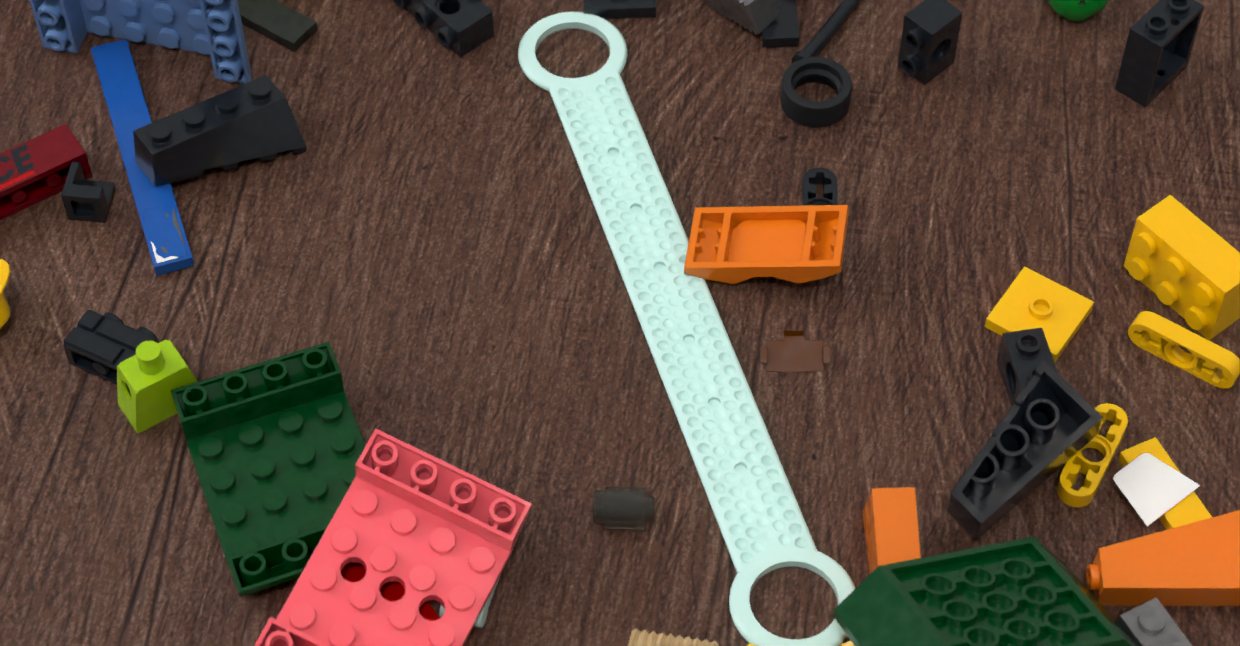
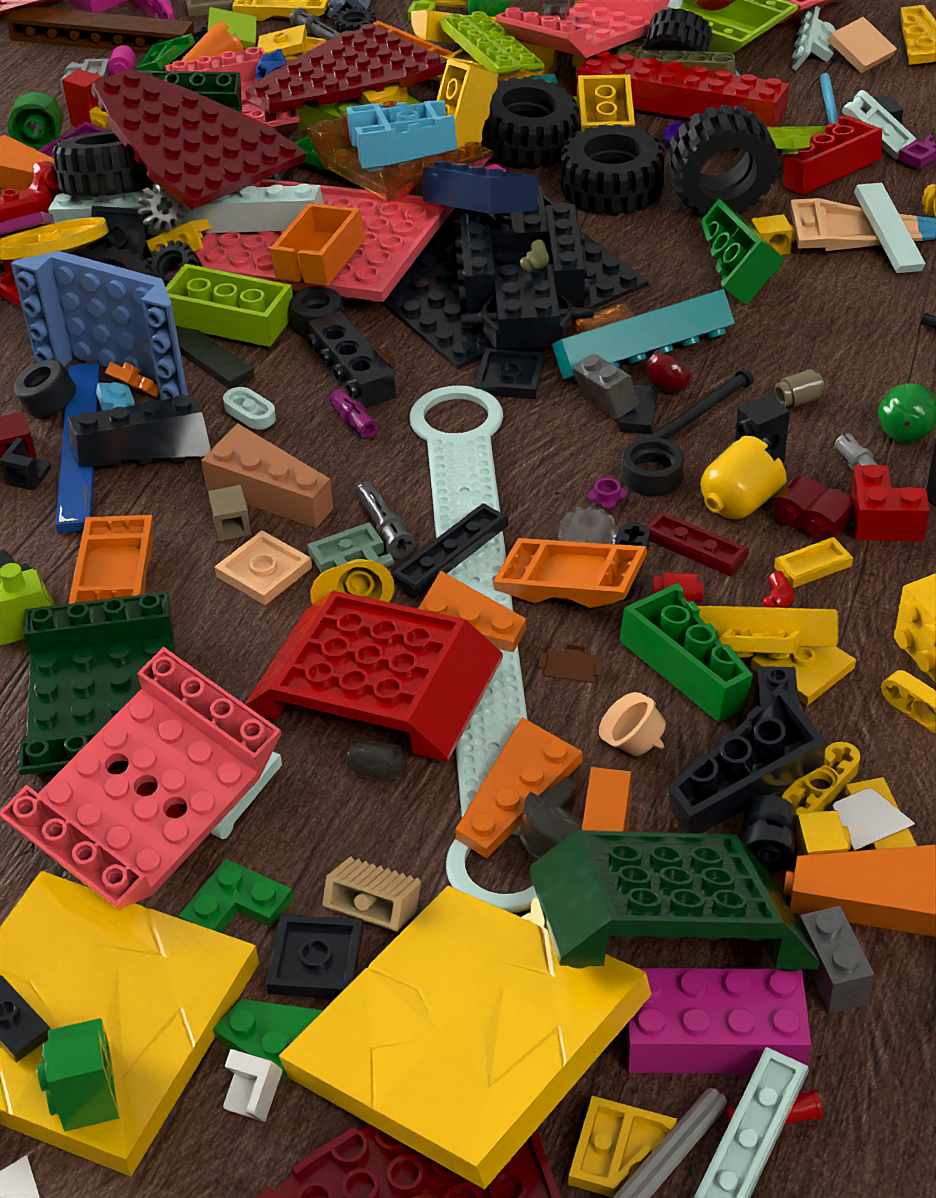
camera: 15 degrees right, 10 degrees down
(76, 86) = (45, 388): none -> black tyre
(165, 87) = (114, 395): none -> medium azure plate
(172, 53) = (130, 375): none -> orange plate
(240, 306) = (113, 558): none -> orange slope
(332, 79) = (249, 408): none -> light aqua plate
(356, 222) = (229, 512): none -> dark tan brick
(385, 170) = (268, 477): none -> nougat wedge
(415, 285) = (263, 567): none -> light nougat tile
(455, 68) = (353, 413): none -> magenta pin
(504, 248) = (352, 544): none -> sand green plate
(533, 302) = (355, 577): none -> yellow piece
(544, 212) = (388, 526): none -> dark grey pin
(593, 399) = (382, 668): none -> red slope
(621, 232) = (449, 549): none -> black tile
(668, 313) = (493, 620): none -> orange wing
(769, 185) = (588, 527): none -> clear gear
(774, 133) = (607, 493): none -> magenta plate
(783, 508) = (527, 763): none -> orange wing
(831, 560) = (549, 818): none -> clear smoke brick
(884, 419) = (633, 724): none -> light nougat piece
(886, 246) = (688, 581): none -> red brick
(888, 182) = (697, 543): none -> dark red tile
(920, 324) = (686, 651): none -> green wedge
(922, 98) = (742, 479): none -> yellow cylinder
(994, 285) = (772, 629): none -> yellow bracket
(997, 232) = (782, 592): none -> red arm
(1005, 121) = (814, 508): none -> dark red brick
(1018, 187) = (813, 562): none -> yellow tile
(1038, 51) = (853, 451): none -> light grey pin
(1059, 521) = (770, 831): none -> black wheel
(1080, 115) = (885, 511): none -> red brick
(1112, 518) = (821, 833): none -> yellow brick

